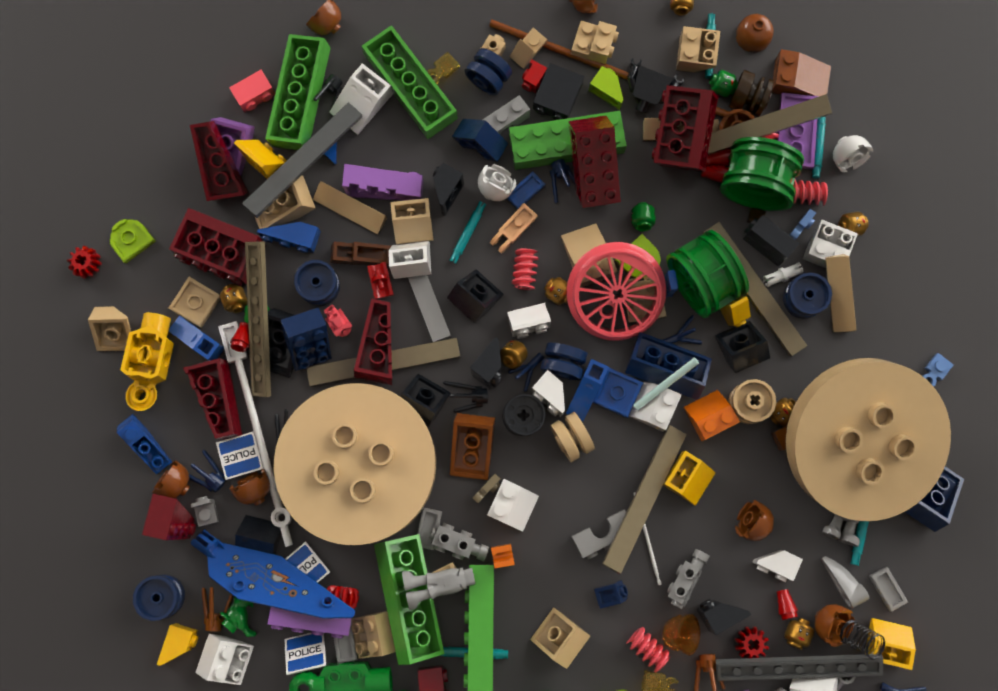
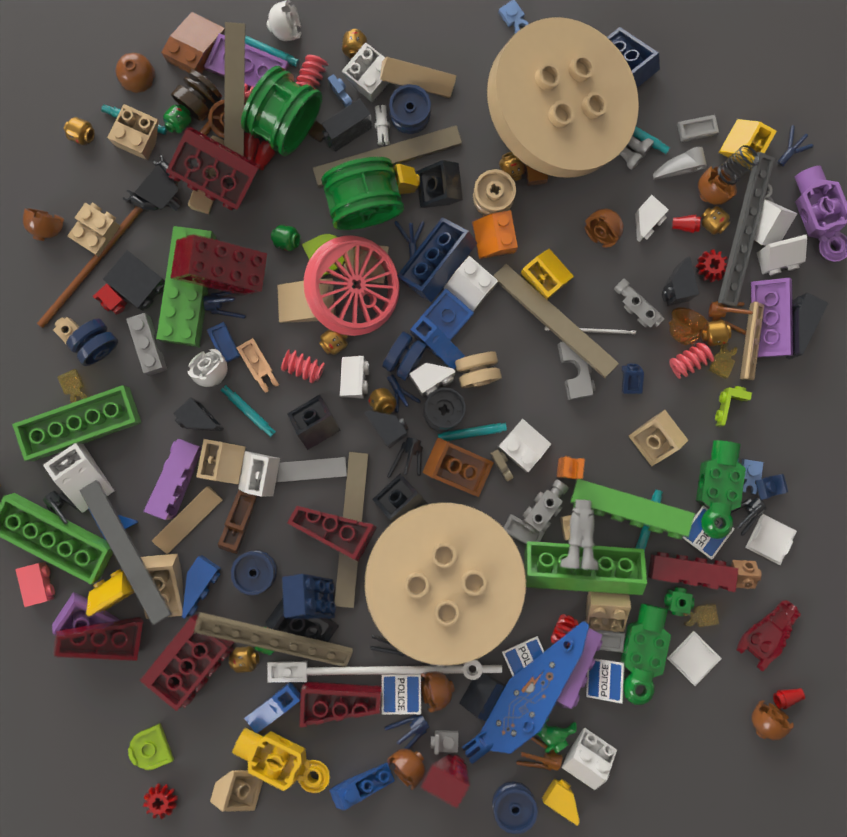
camera: 75 degrees left, 5 degrees up
(195, 302) = (235, 699): tan tile -> none
(240, 339) = (287, 662): red cone -> none
(337, 321) = (298, 562): coral hips -> none
(380, 280) = (271, 509): red hips -> none
(481, 137) = (157, 369): dark blue panel -> none
(511, 450) = (473, 431): none -> teal piece
(528, 48) = (79, 296): tan slope -> none
(607, 87) = (145, 231): lime slope -> none
(666, 383) = (455, 266): light aqua bar -> none
(671, 283) = (359, 230): blue tile -> none
(684, 667) = (716, 333): none -> pearl gold head

